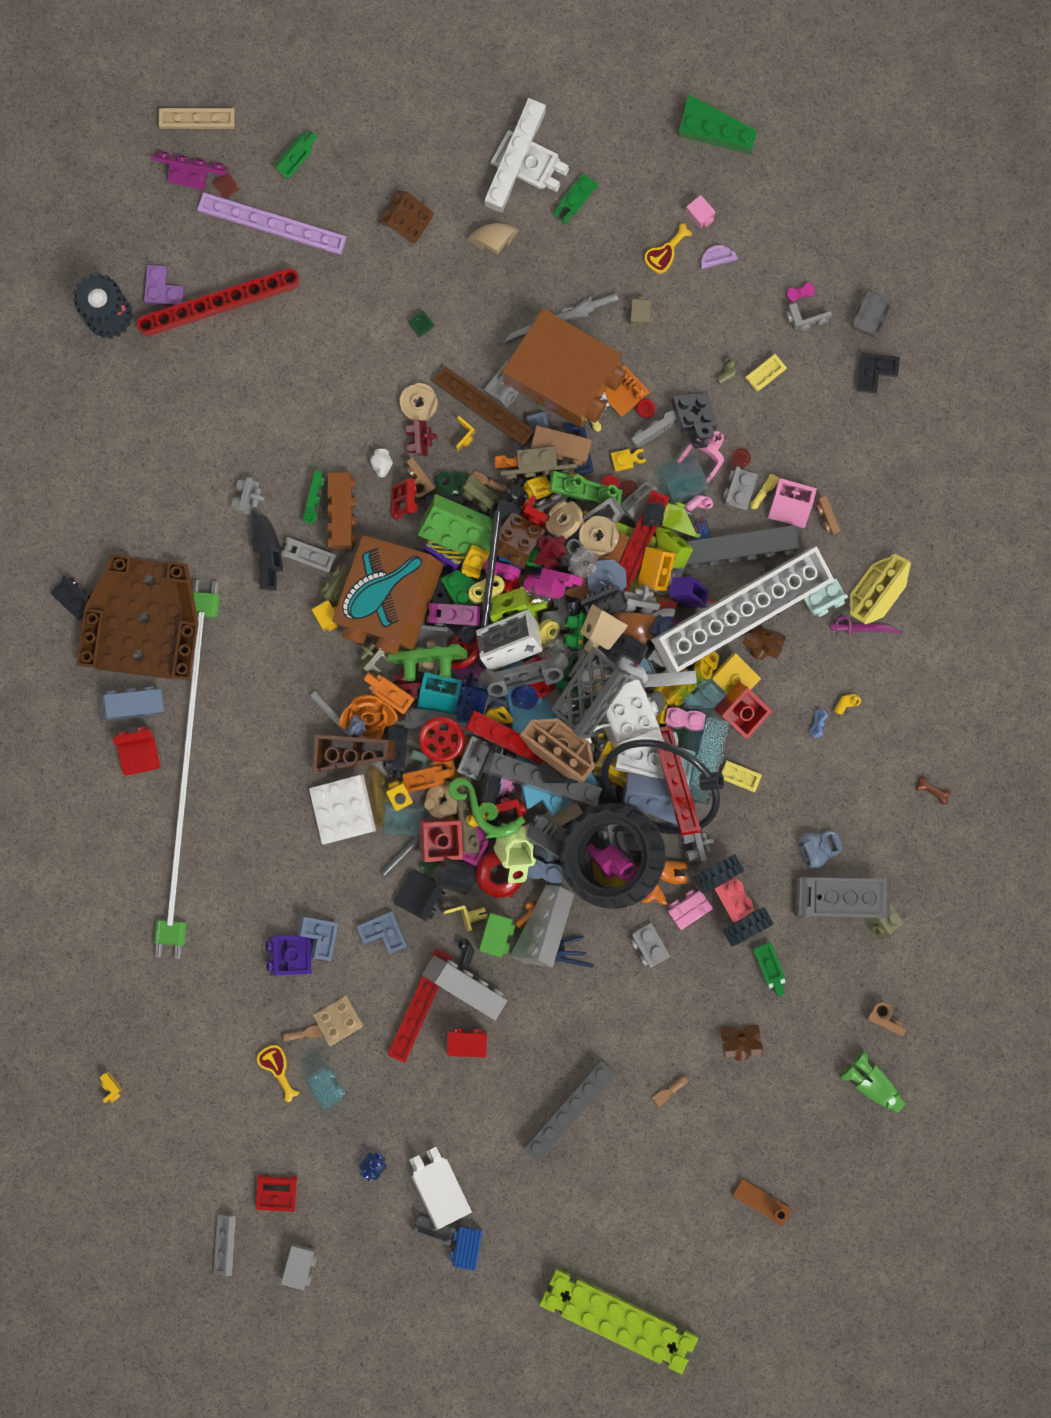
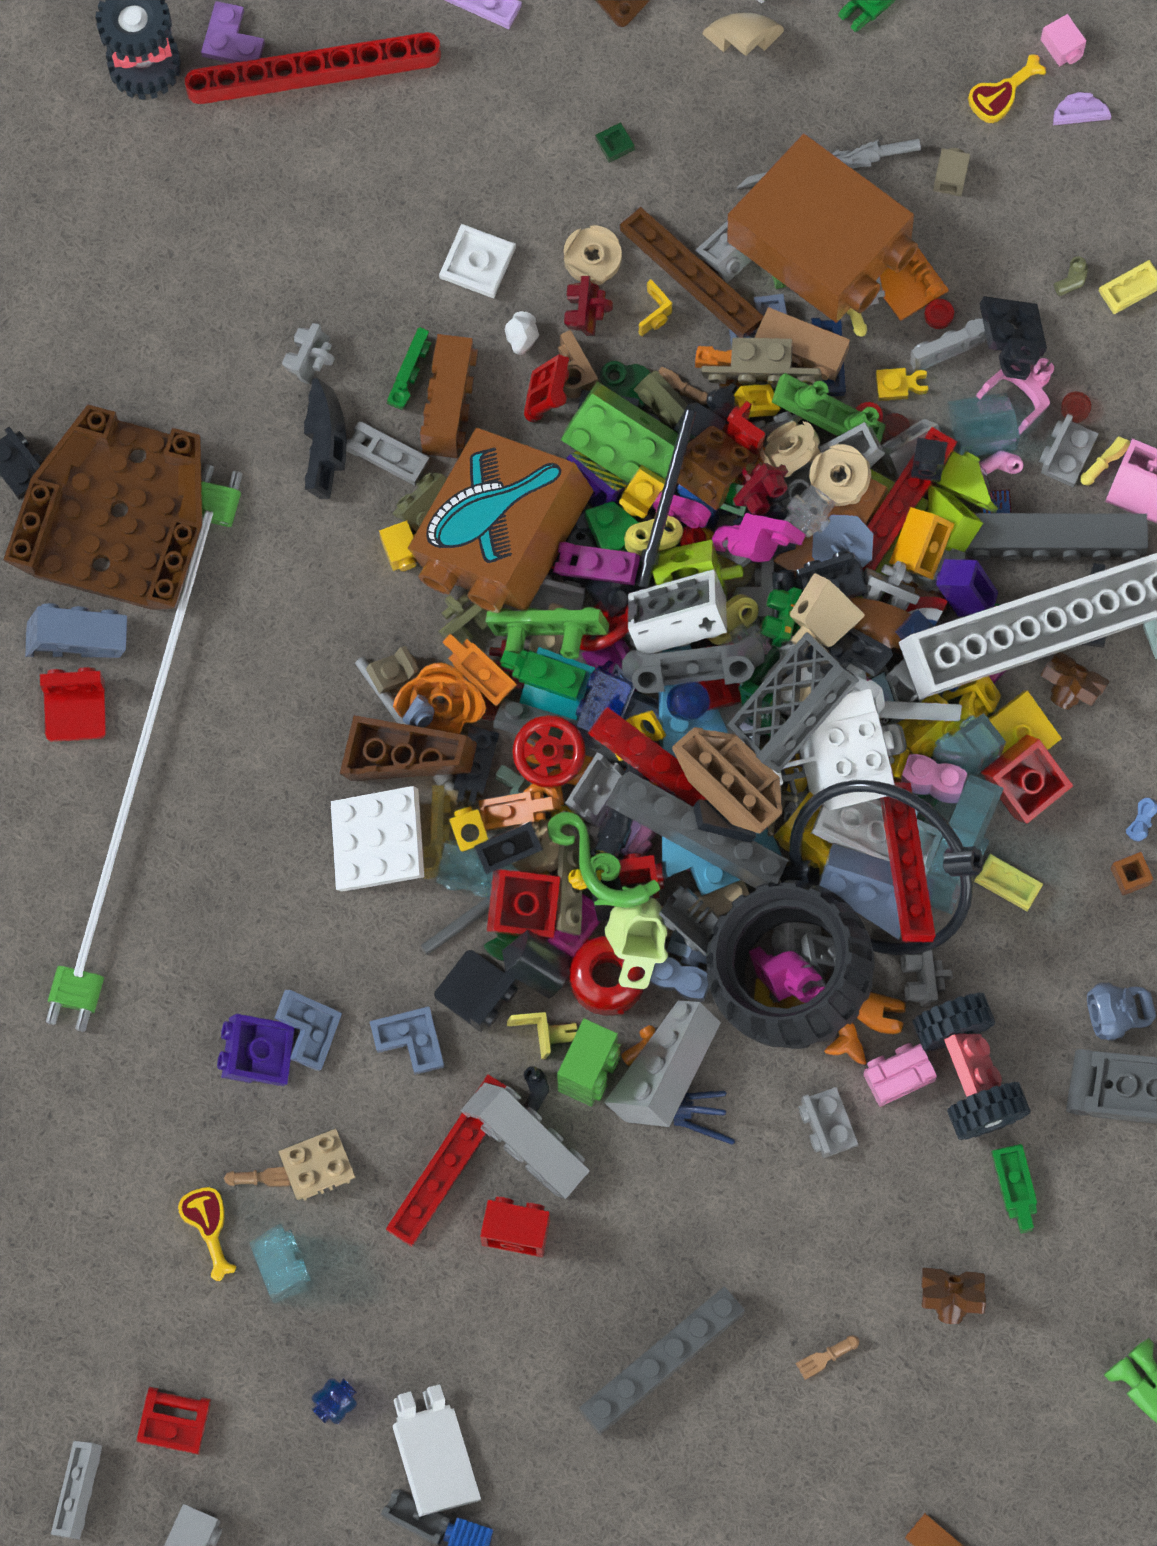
camera: 10 degrees right, 10 degrees down
(335, 698) = (393, 670): none -> dark tan bracket
(345, 417) = (477, 261): none -> white plate
(426, 806) = (508, 847): none -> black brick
(431, 689) = (545, 673): none -> green hinge
(823, 760) = (1136, 865): none -> dark orange plate

